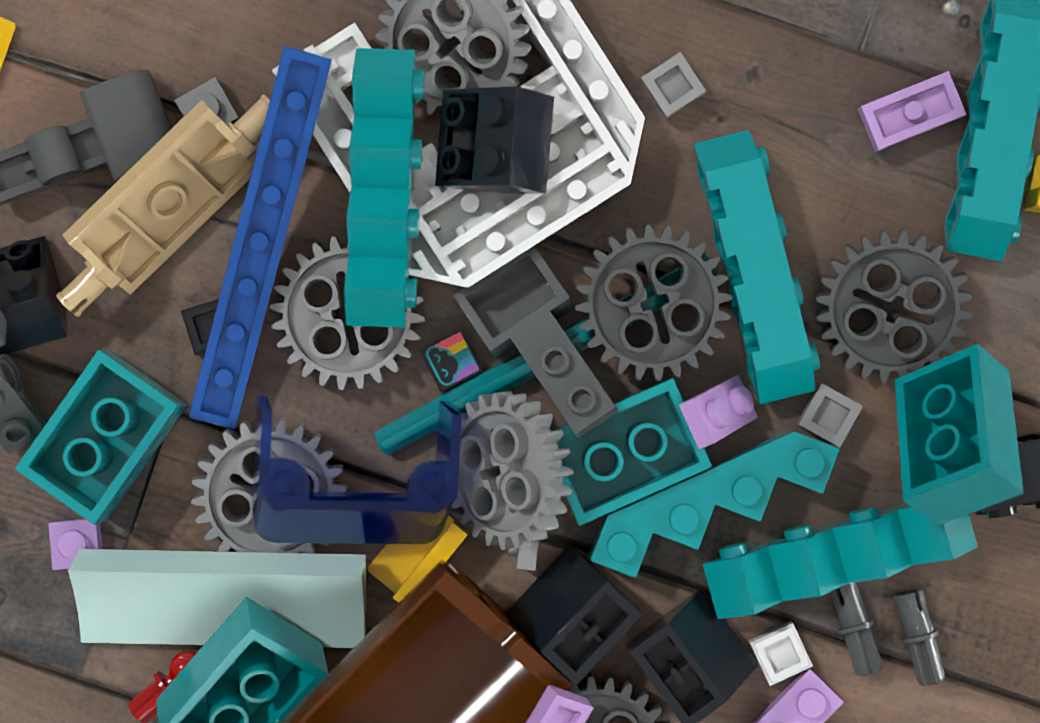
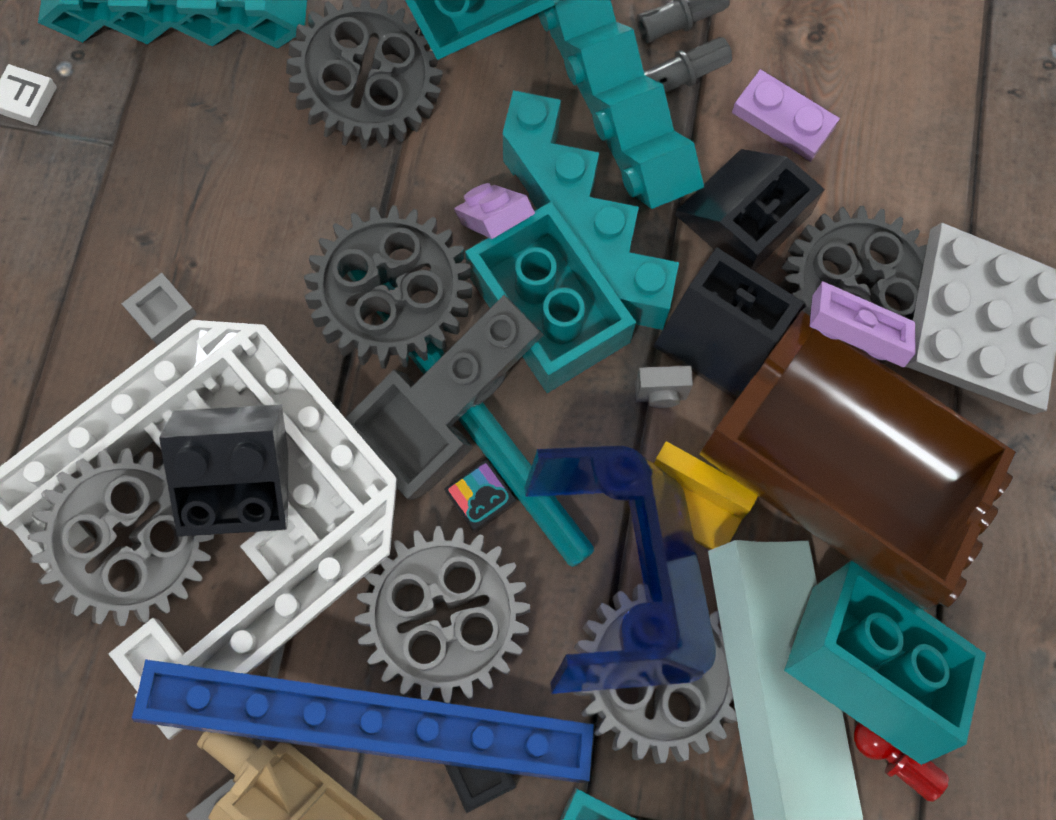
camera: 100 degrees left, 15 degrees down
(381, 187) = (272, 583): teal brick -> none
(510, 471) = (574, 368): light grey gear -> none
(758, 272) = (301, 207): teal brick -> none
(780, 653) = (724, 134): white tile -> none
(829, 415) = (480, 117): light grey plate -> none
(911, 111) = (169, 83): lavender plate -> none

